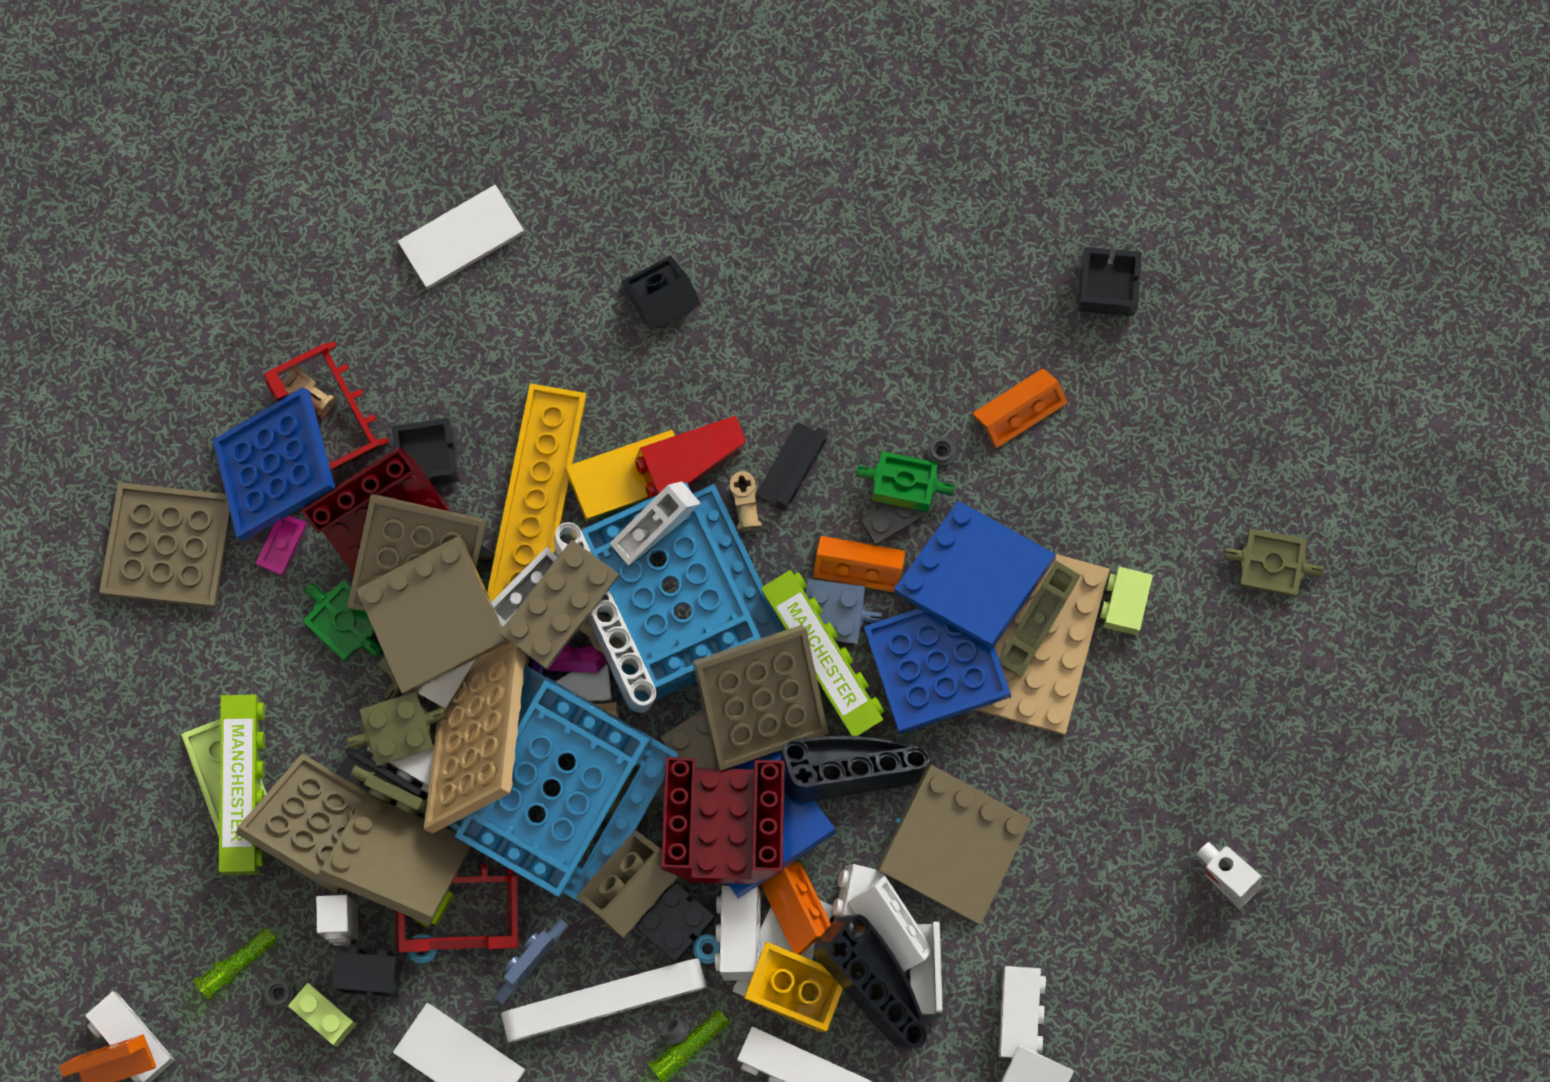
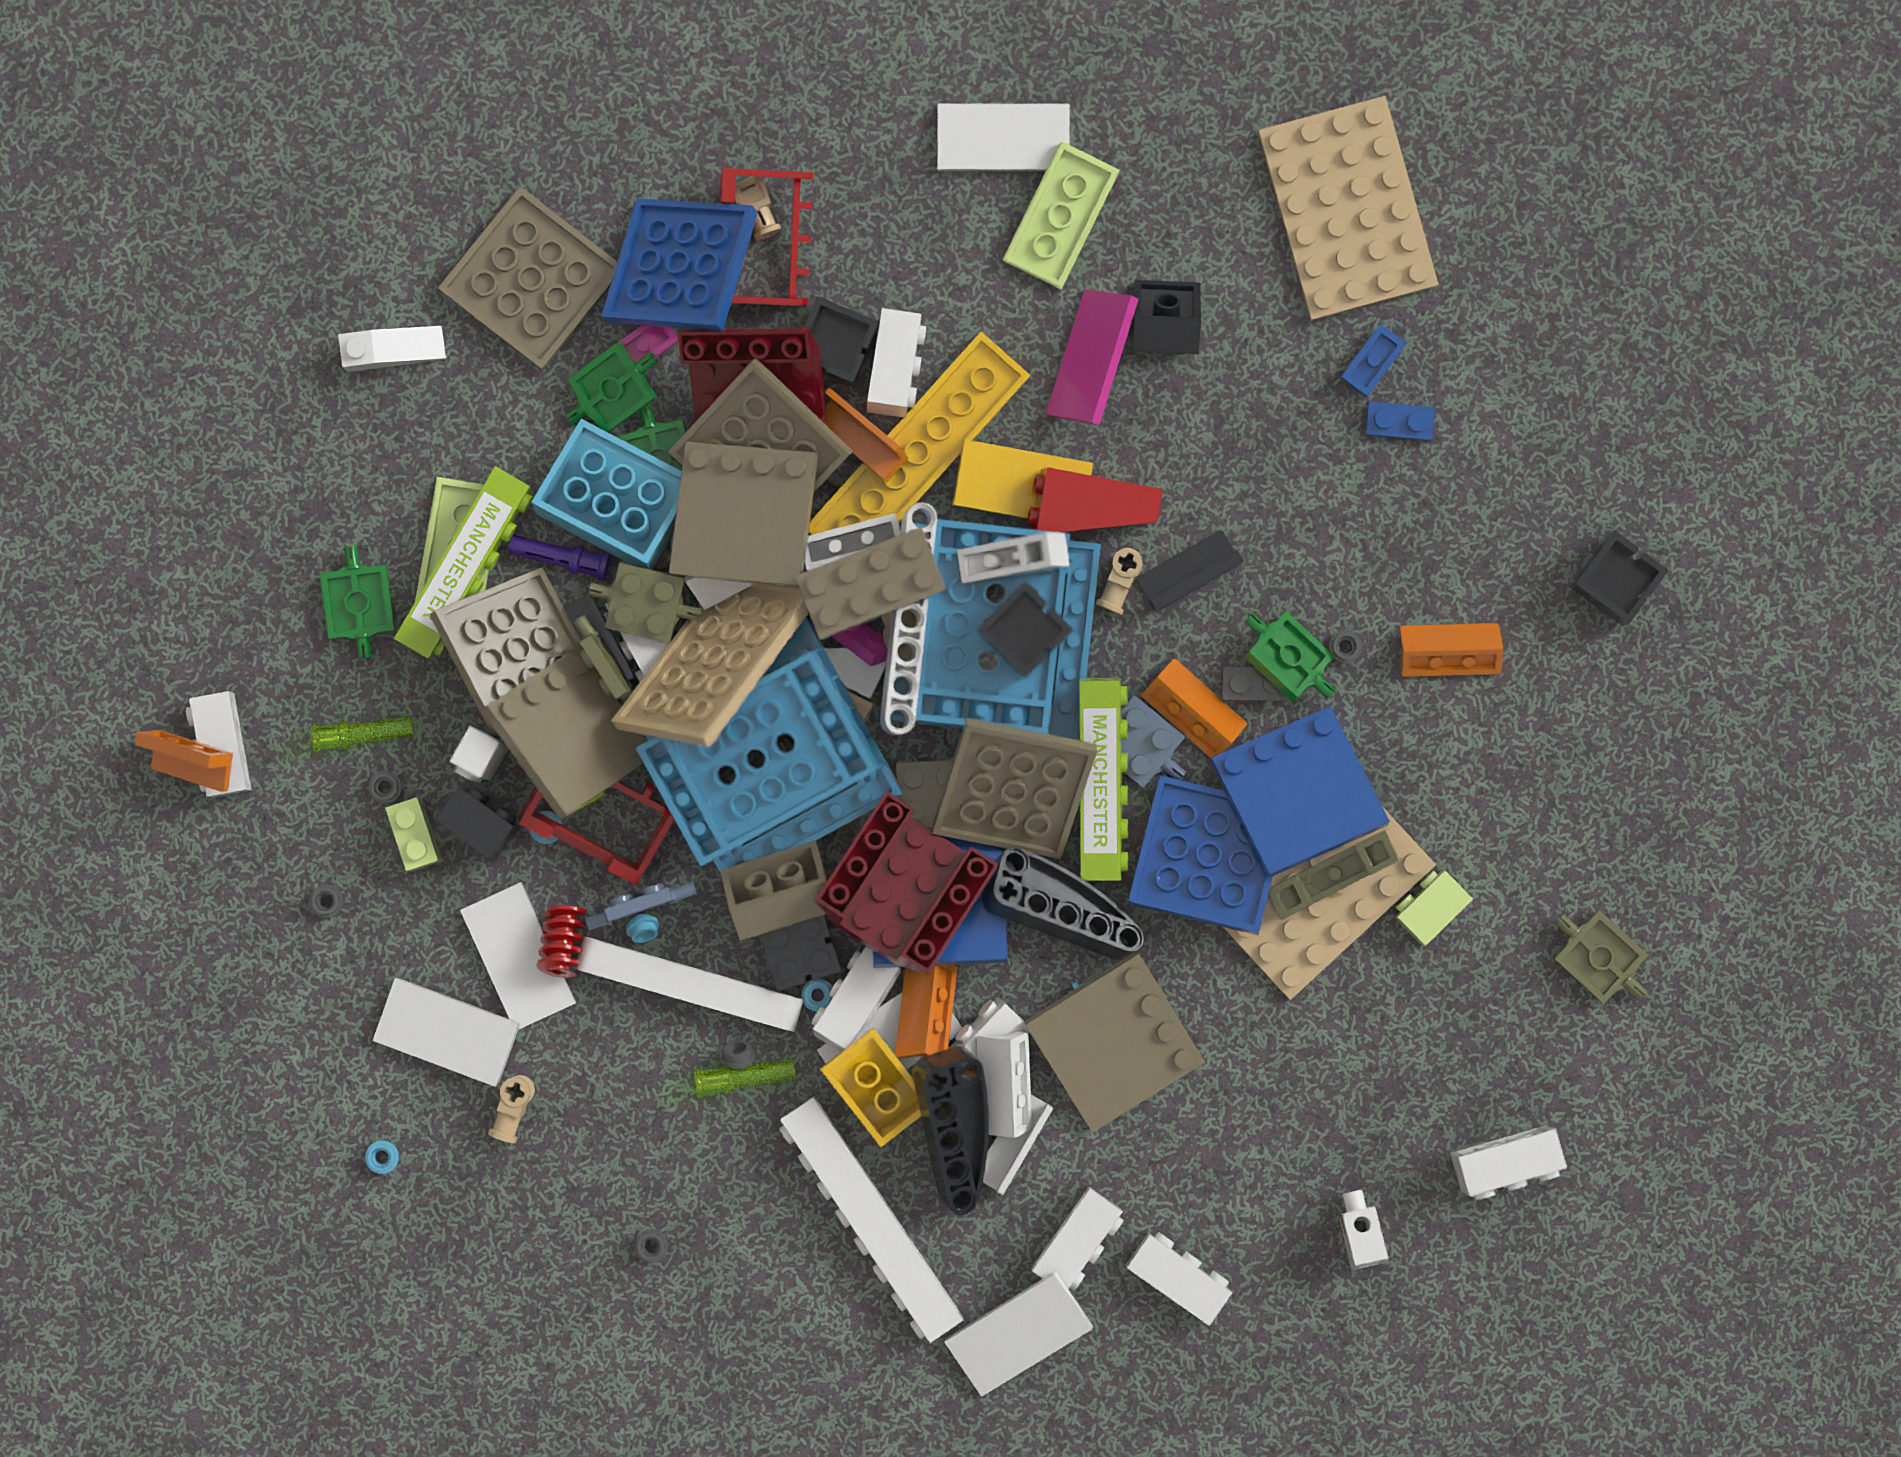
camera: 30 degrees right, 10 degrees up
(88, 658) = (391, 347): none -> white slope
(174, 864) = (357, 602): none -> green plate
(276, 587) = (612, 388): none -> green plate
(323, 666) = (611, 496): none -> medium azure slope
(324, 733) = (575, 559): none -> dark purple pin
(480, 442) = (895, 363): none -> white brick
(484, 1027) = (559, 940): none -> red piece
(500, 510) = (863, 437): none -> orange panel
(538, 266) = (1061, 215): none -> yellowish green tile
(542, 979) = (642, 928): none -> medium azure plate
(623, 352) = (1091, 356): none -> dark pink tile
(696, 572) = (1023, 631): none -> black piece
(745, 140) = (1348, 208): none -> tan plate
(832, 235) = (1373, 360): none -> blue plate
(878, 267) = (1399, 421): none -> blue plate
(1115, 993) = (1179, 1277): none -> white brick
(1304, 752) = (1509, 1162): none -> white brick

